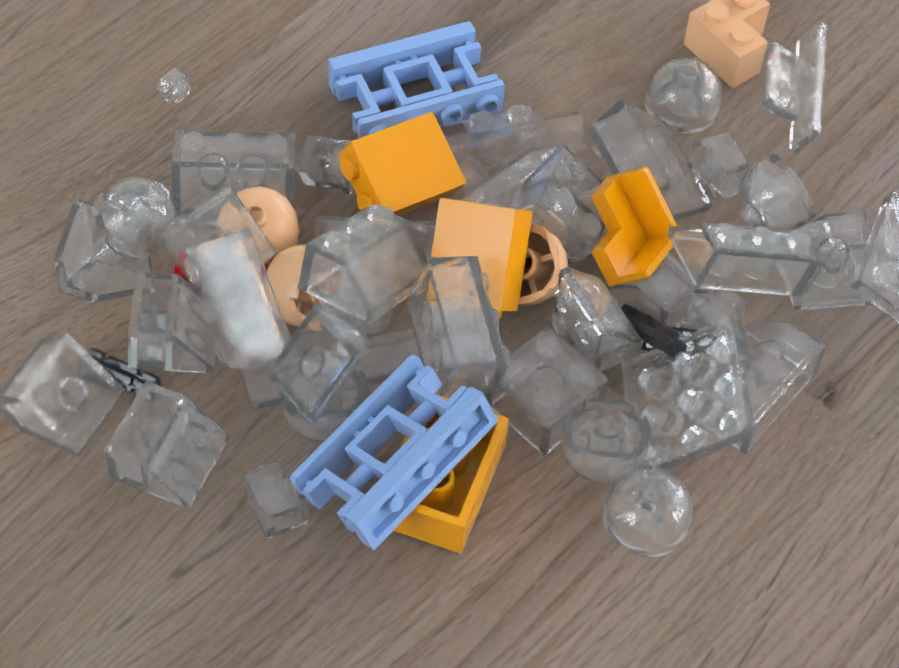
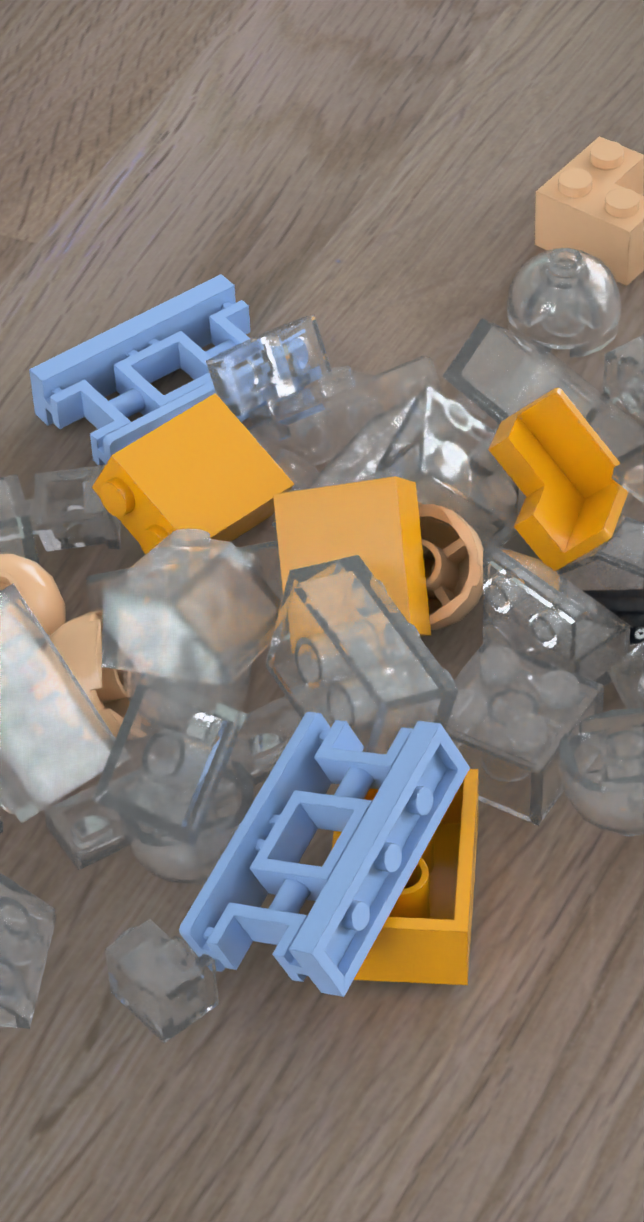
camera: 10 degrees left, 10 degrees down
(476, 95) = (269, 365): none -> clear slope

